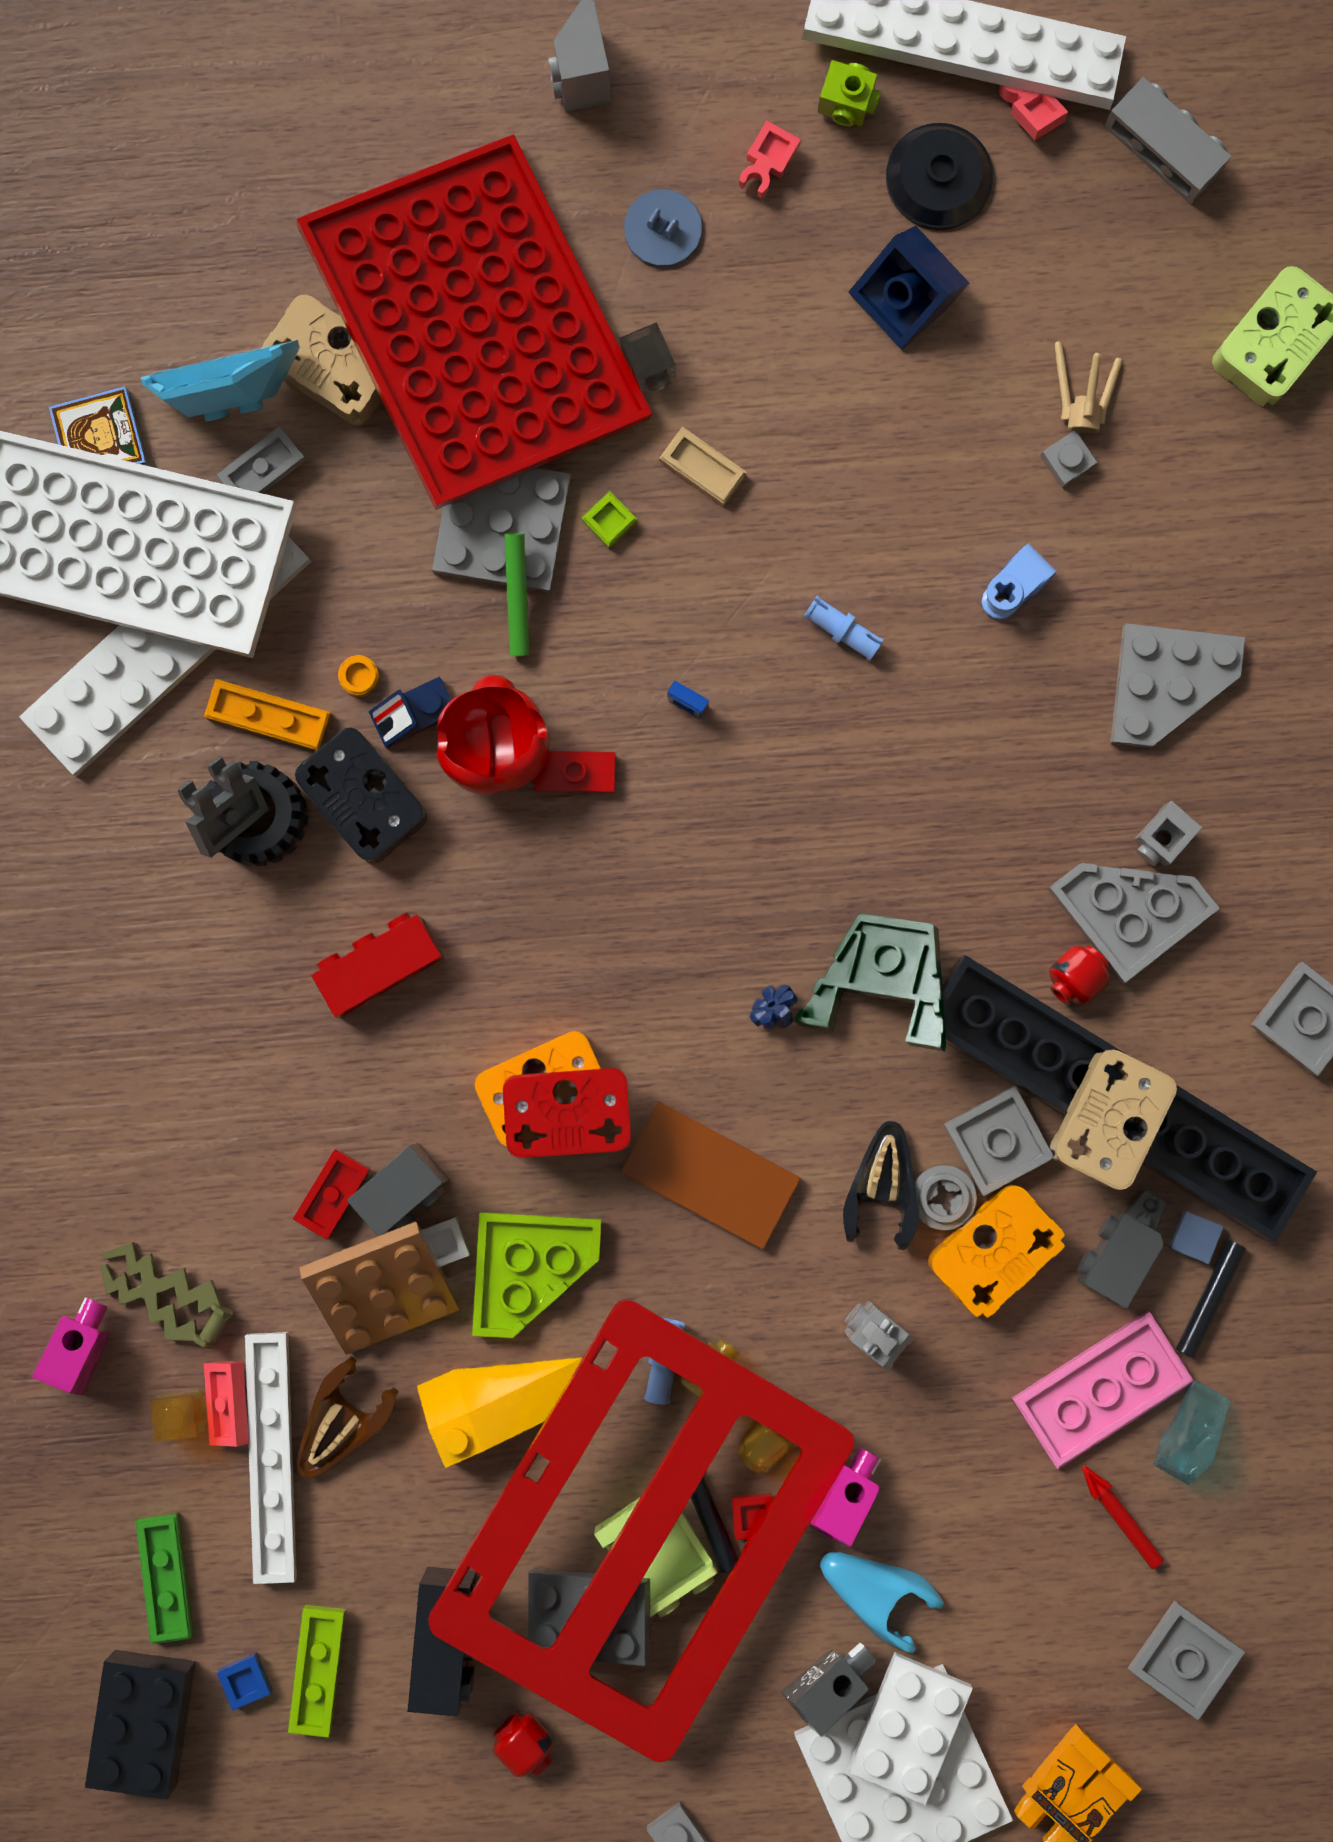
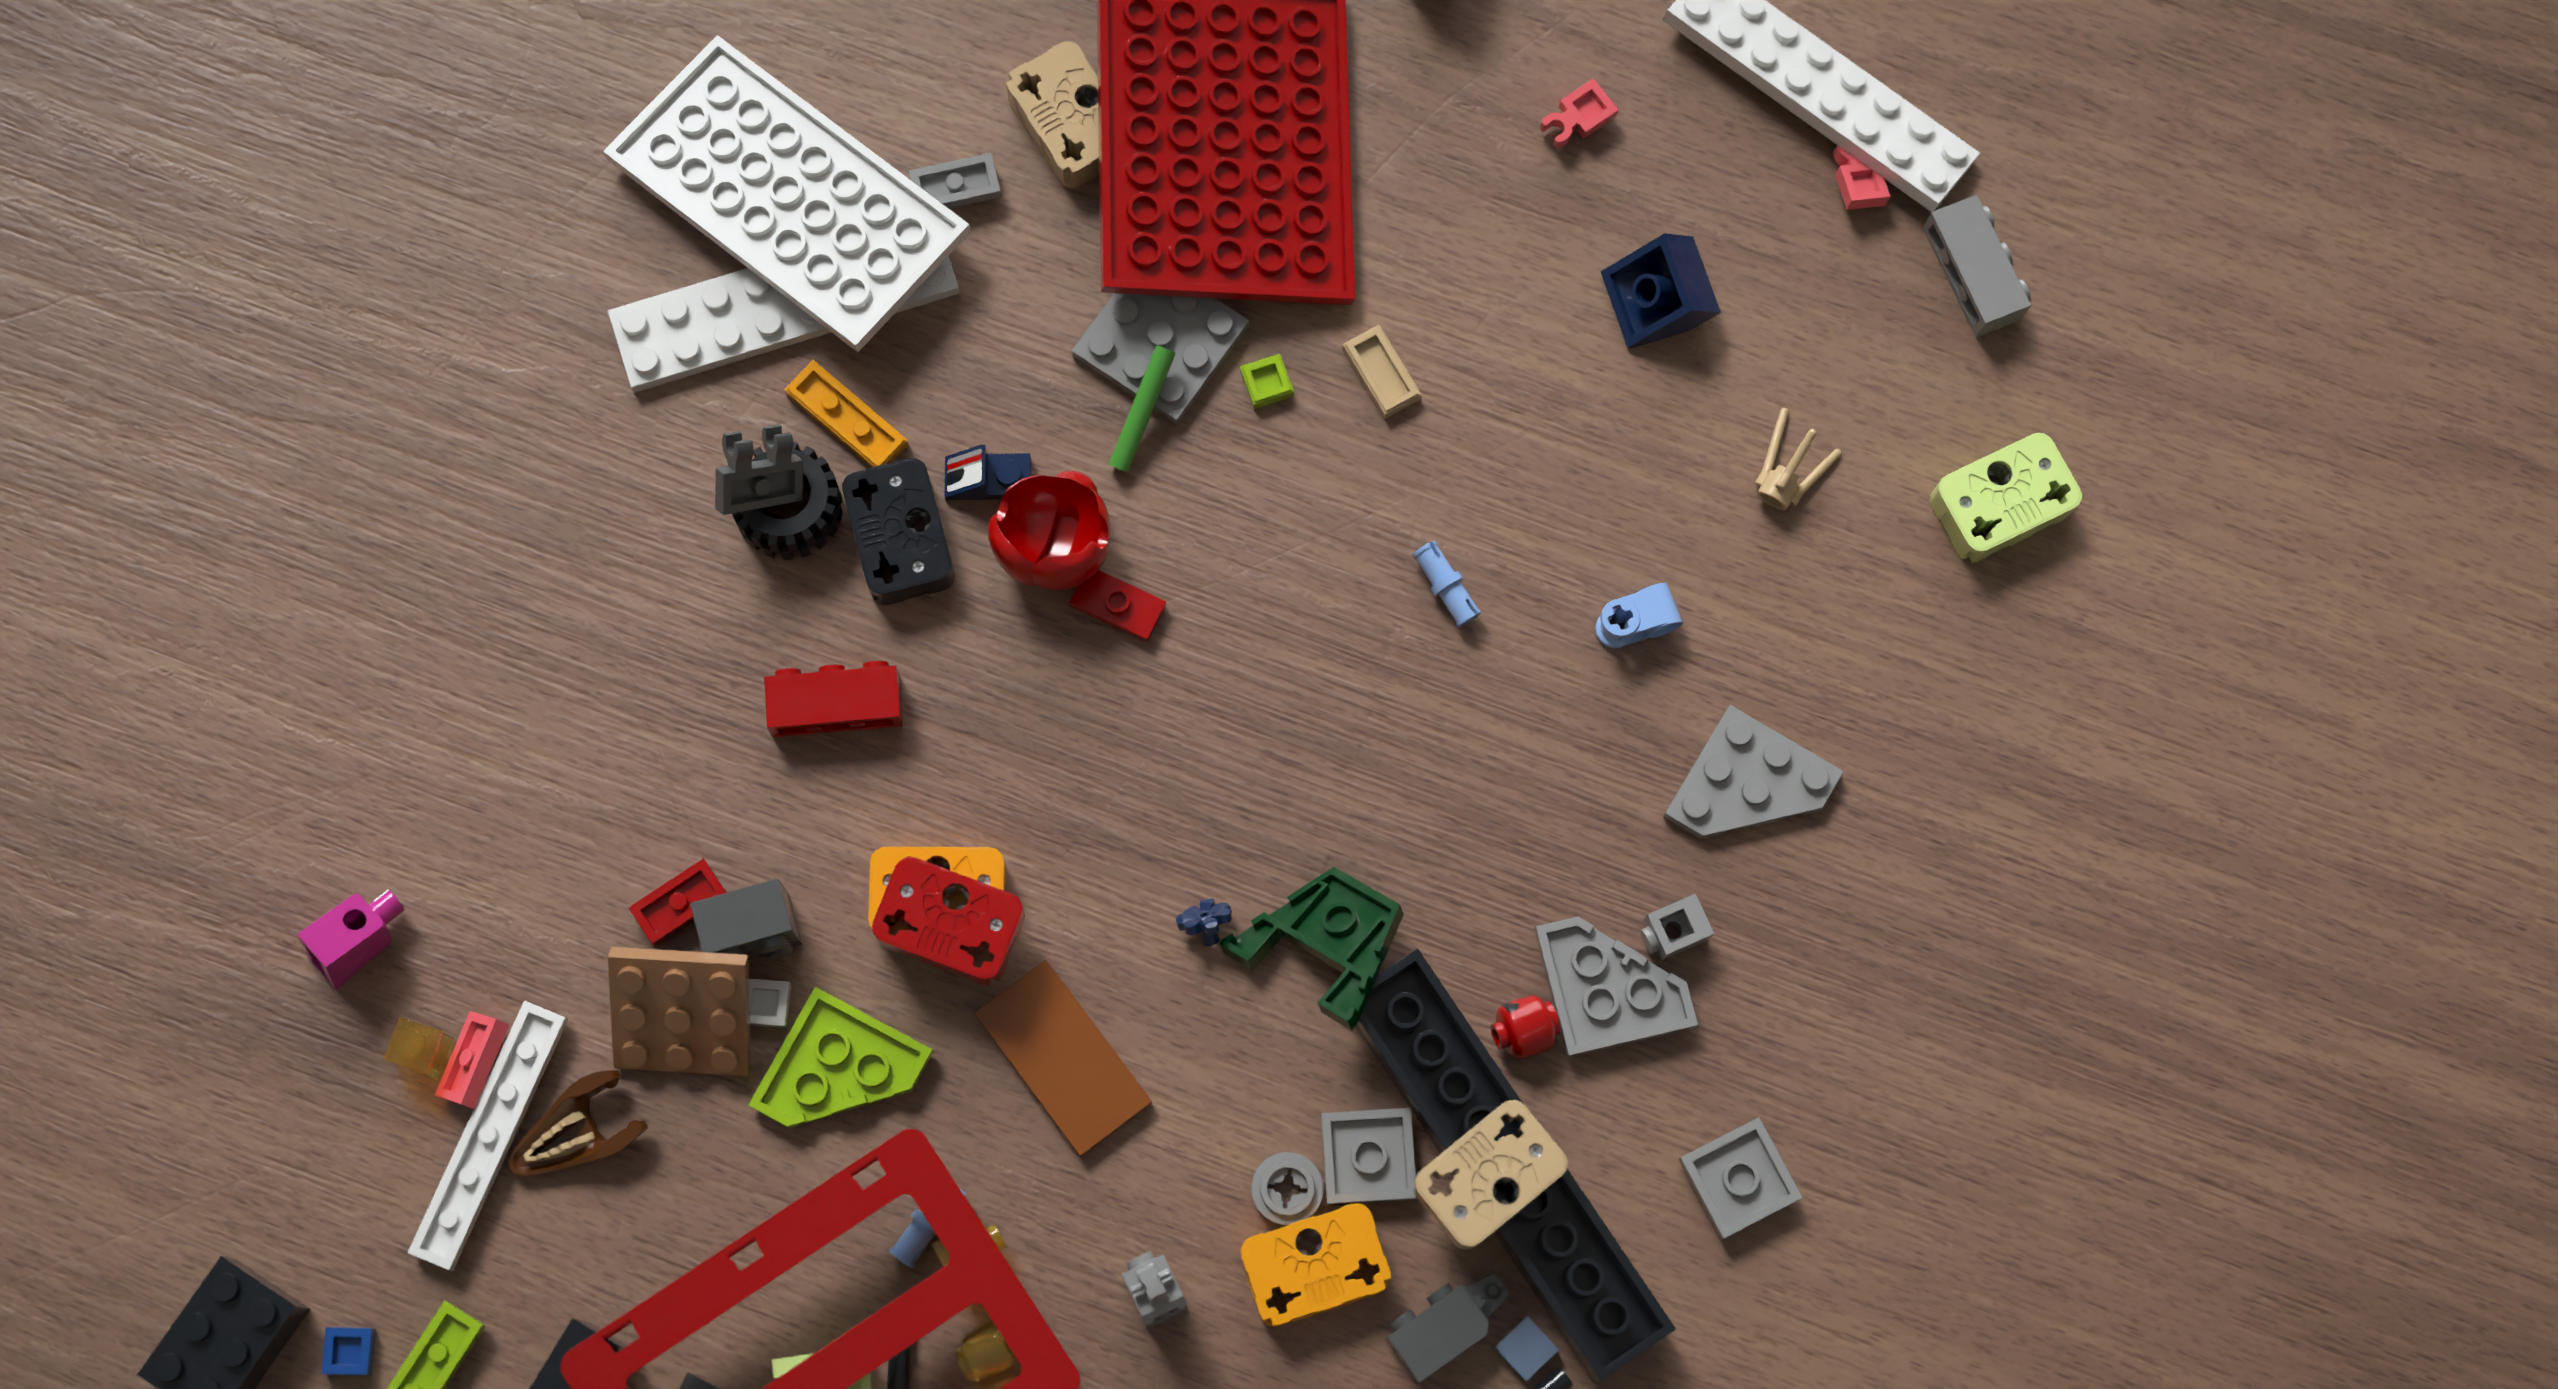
camera: 20 degrees right, 10 degrees down
(100, 425) = (822, 78): tile -> none
(151, 1287) = (458, 912): olive piece -> none
(164, 1578) = (322, 1209): bright green tile -> none
(225, 382) = (959, 88): medium azure wedge -> none
(358, 676) = (952, 419): light orange tile -> none
(488, 1405) = (726, 1183): yellow wedge -> none
(648, 358) = (1376, 246): clear smoke brick -> none
(663, 228) = (1448, 135): sand blue piece -> none
(687, 699) = (1261, 583): blue tile -> none
(848, 93) = (1683, 88): lime brick -> none
(885, 1179) = (1233, 1141): black animal -> none
(939, 176) = (1739, 204): black piece -> none
(1068, 458) = (1745, 522): light grey plate -> none

